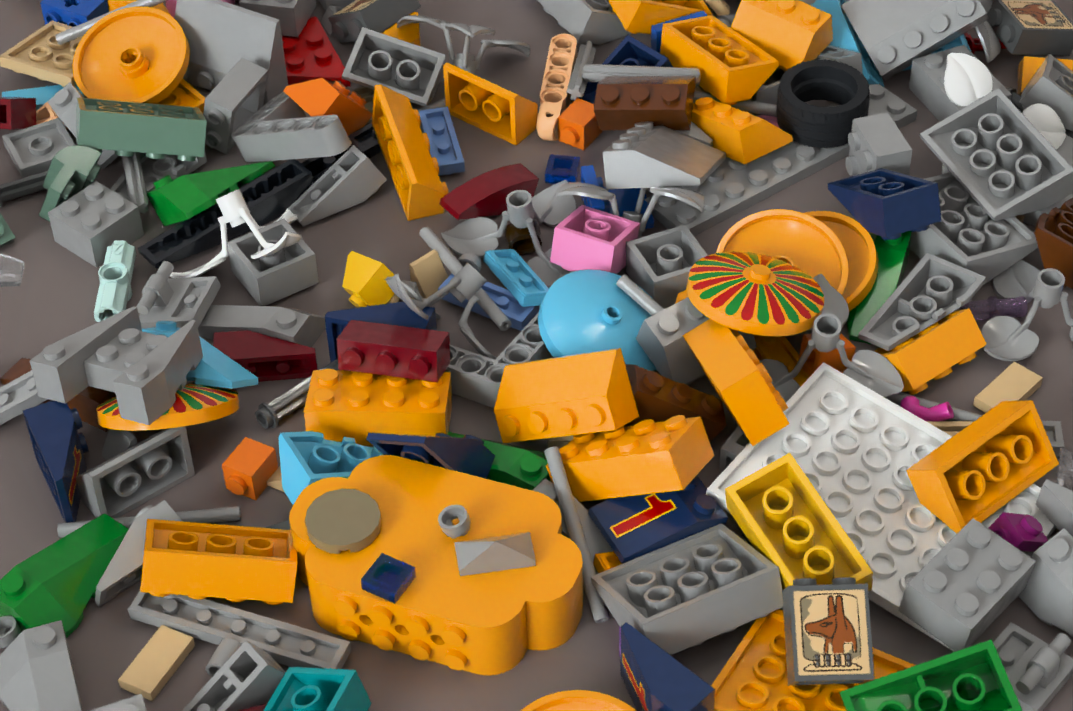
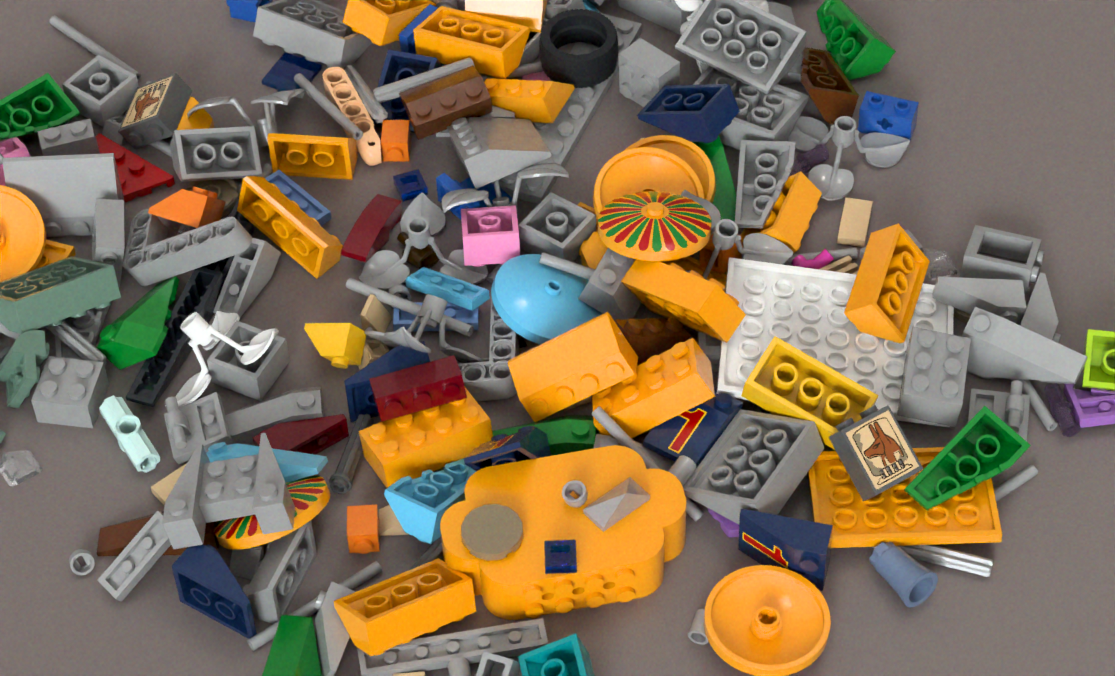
camera: 30 degrees left, 5 degrees up
(534, 30) = (283, 72): none -> clear blue piece
(536, 68) = (328, 106): none -> light grey piece
(602, 557) = (683, 468): none -> light grey hinge
(1020, 531) = (941, 320): magenta bracket -> none

